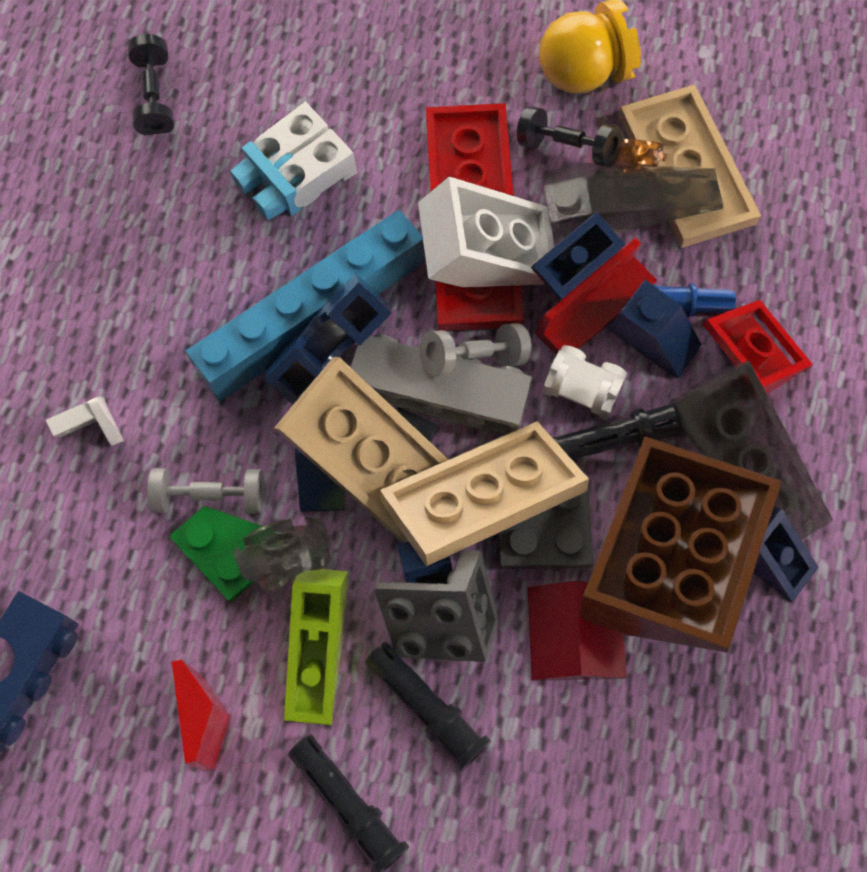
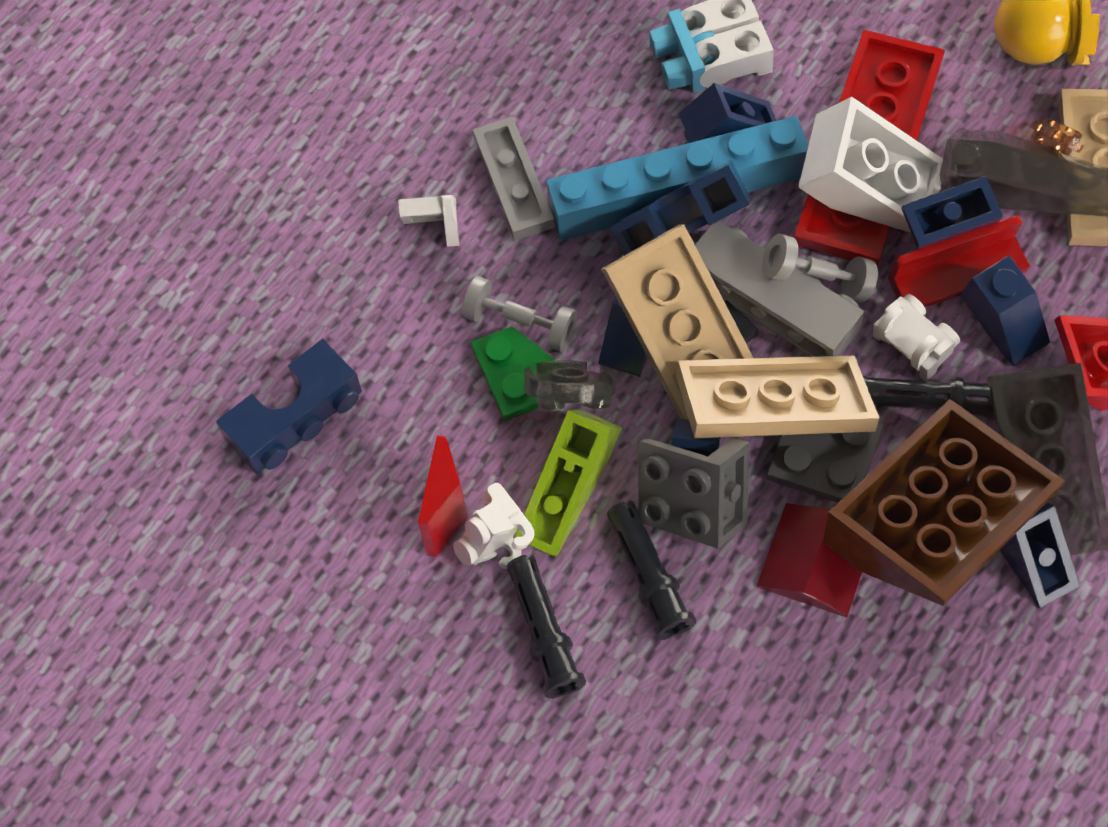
camera: 25 degrees right, 5 degrees down
(152, 356) = (513, 178): none -> light grey plate
(261, 724) = (494, 528): none -> white piece
(329, 227) = (723, 111): none -> dark blue slope
(606, 144) = (1025, 120): black wheel -> none
(701, 300) = (1067, 300): blue axle -> none

